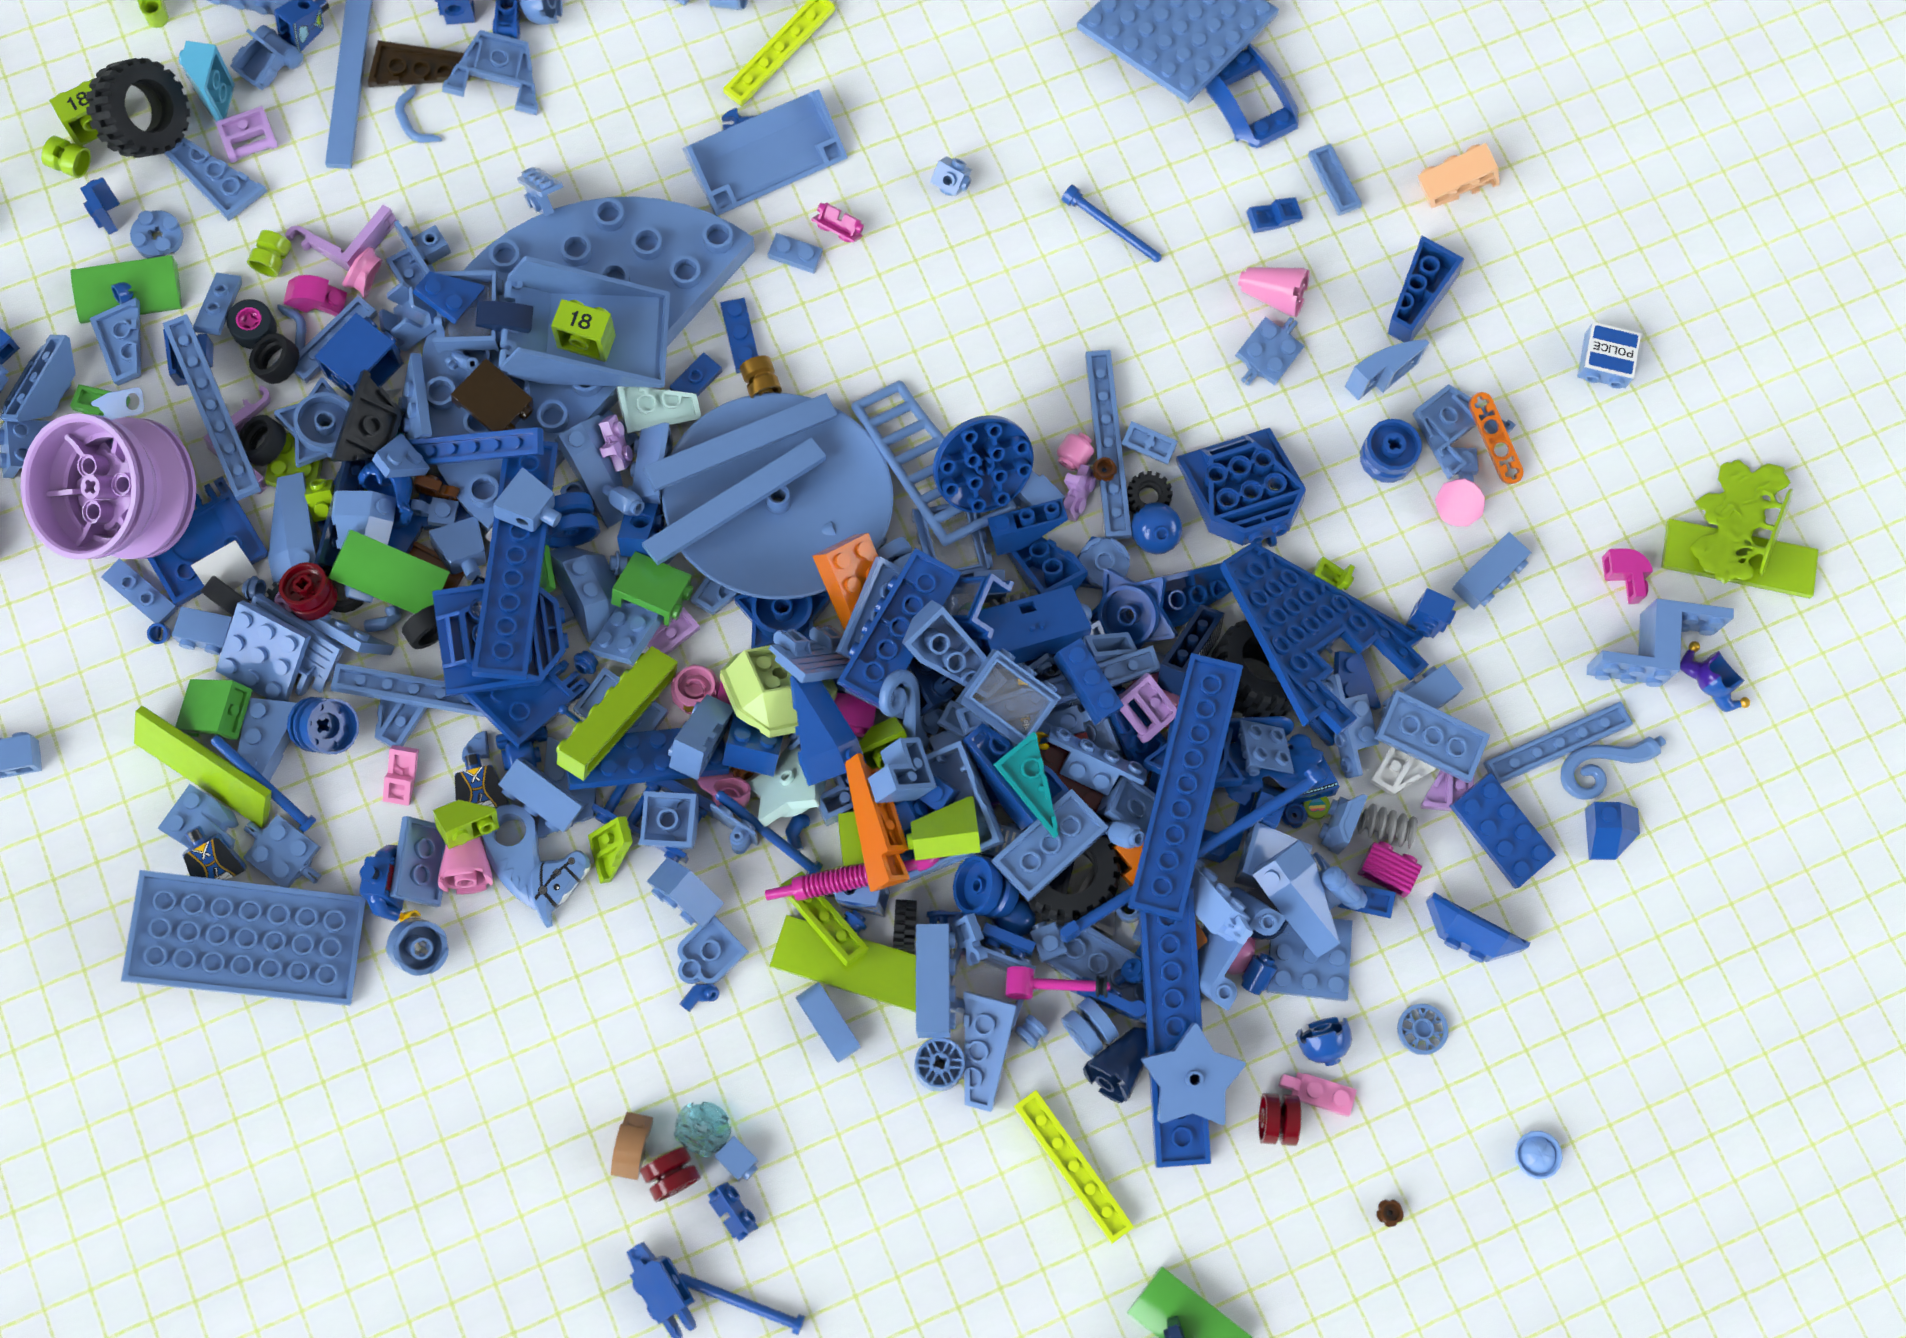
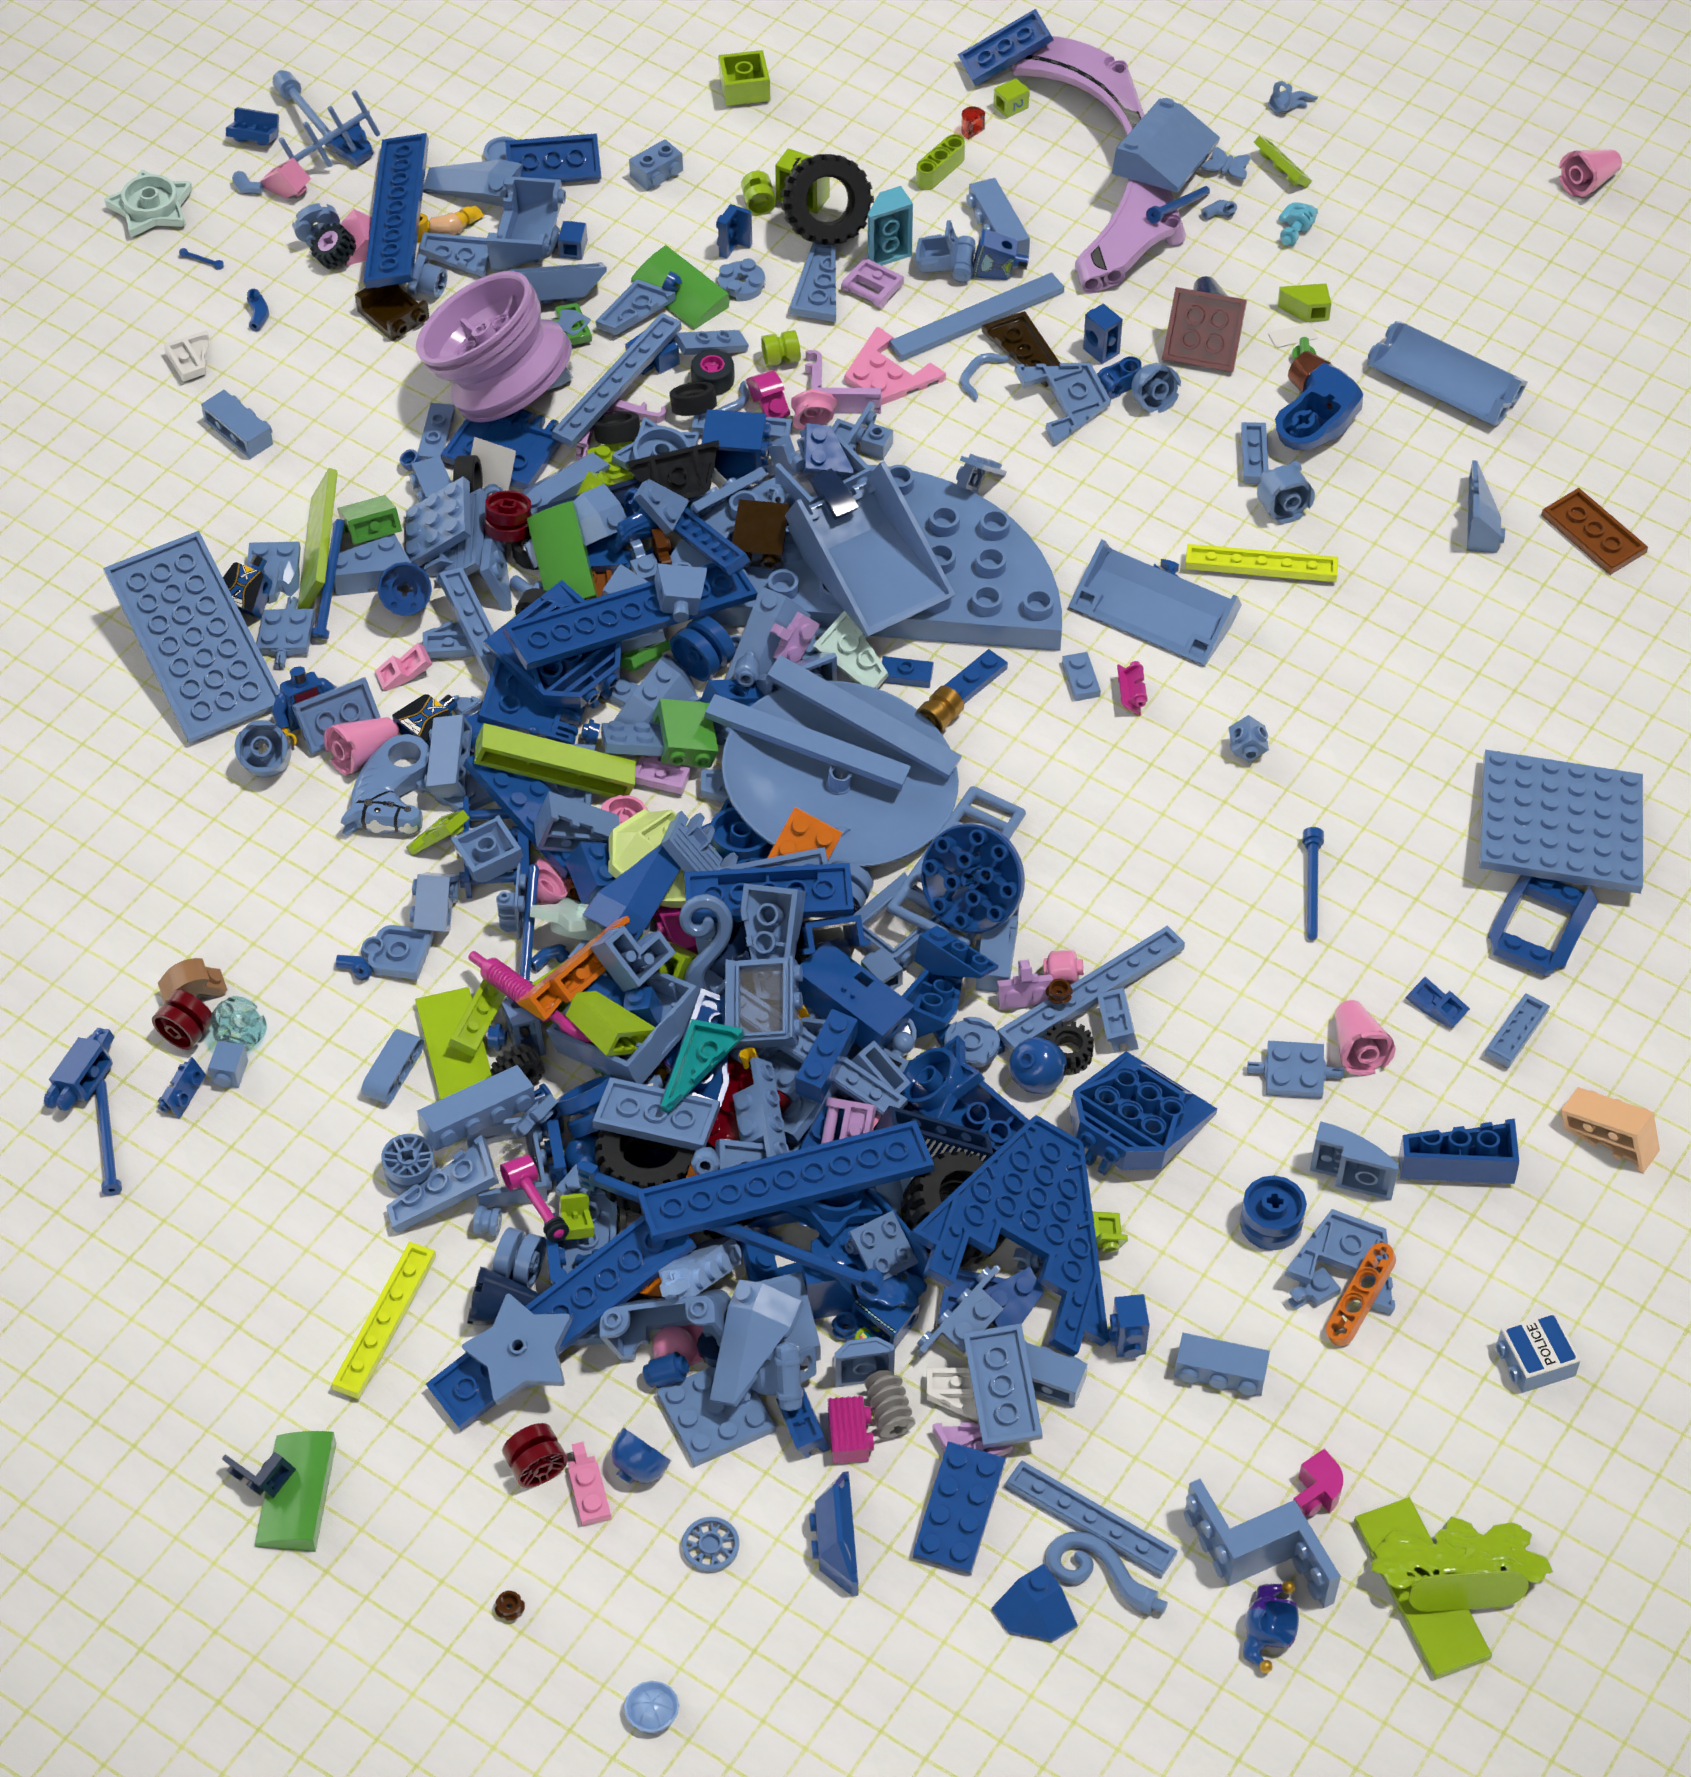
camera: 65 degrees right, 20 degrees down
(359, 196) = (876, 371): none -> bright pink wing
(464, 821) = (386, 715): lime slope -> none
(583, 329) = (865, 548): lime brick -> none
(1084, 961) = (576, 1214): none -> lime bracket
(1460, 502) = (1269, 1299): bright pink hat -> none

